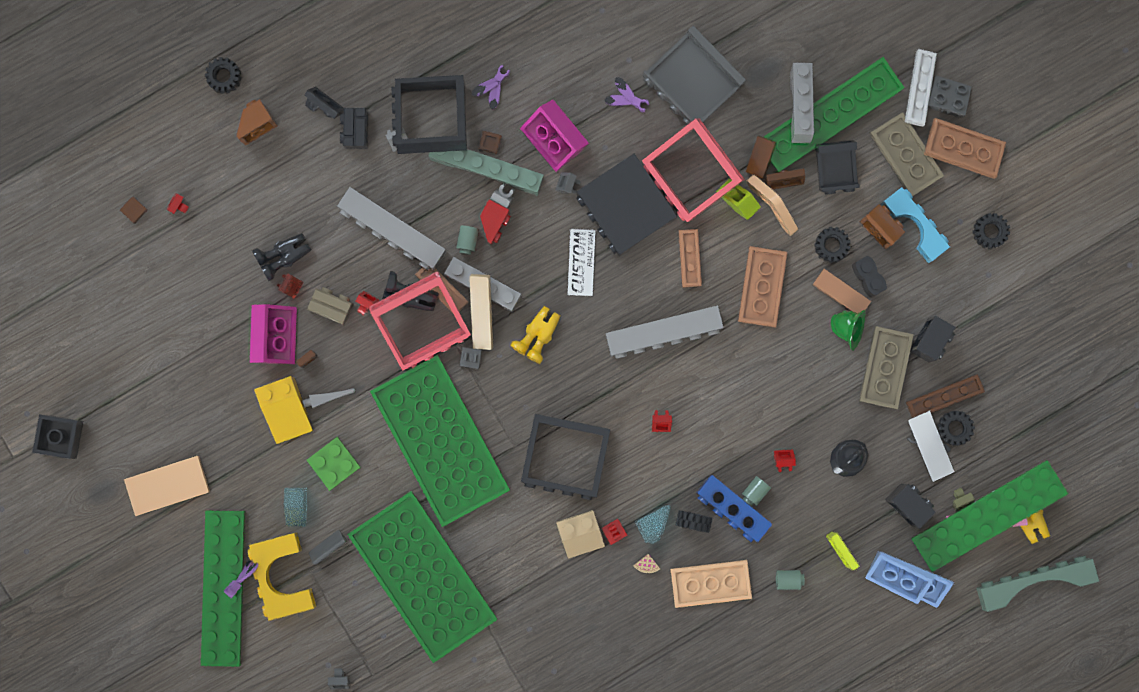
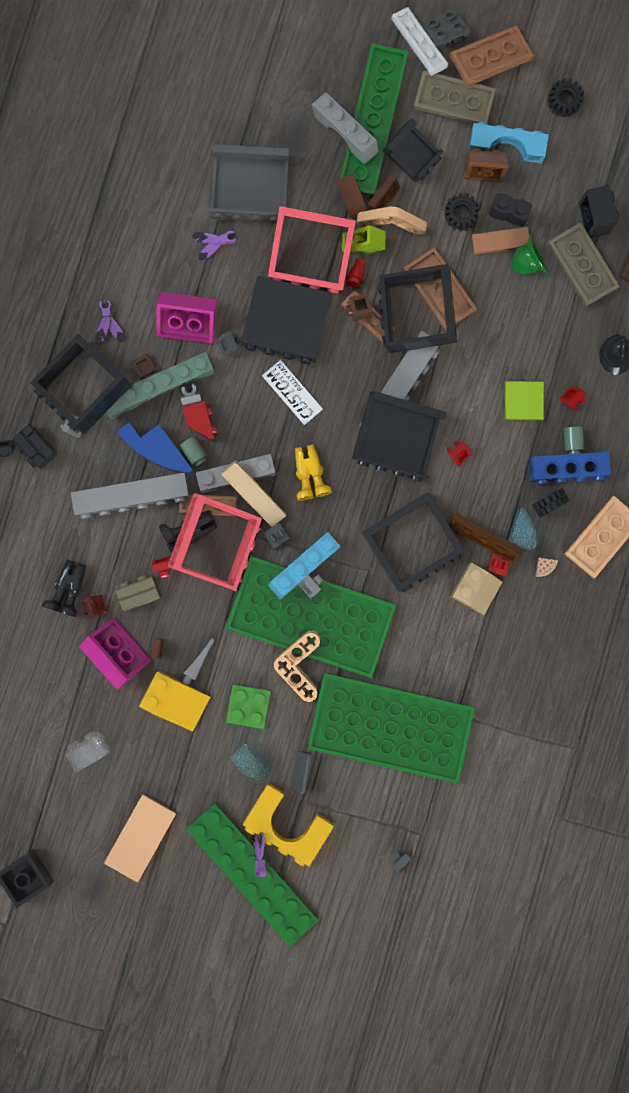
camera: 45 degrees left, 0 degrees up
(186, 387) = (88, 751): none -> clear brick
(395, 461) = (292, 661): none -> light nougat beam
(442, 211) = (156, 448): none -> blue slope
(459, 417) = (310, 585): none -> light grey tile
(468, 398) = (303, 565): none -> medium azure arch
(621, 503) = (486, 538): none -> reddish brown tile
(625, 367) = (397, 435): none -> black panel
(686, 246) = (359, 307): none -> reddish brown brick
(708, 262) = (410, 277): none -> black window
(710, 218) = (355, 276): none -> red cone
(746, 428) = (524, 400): none -> lime tile

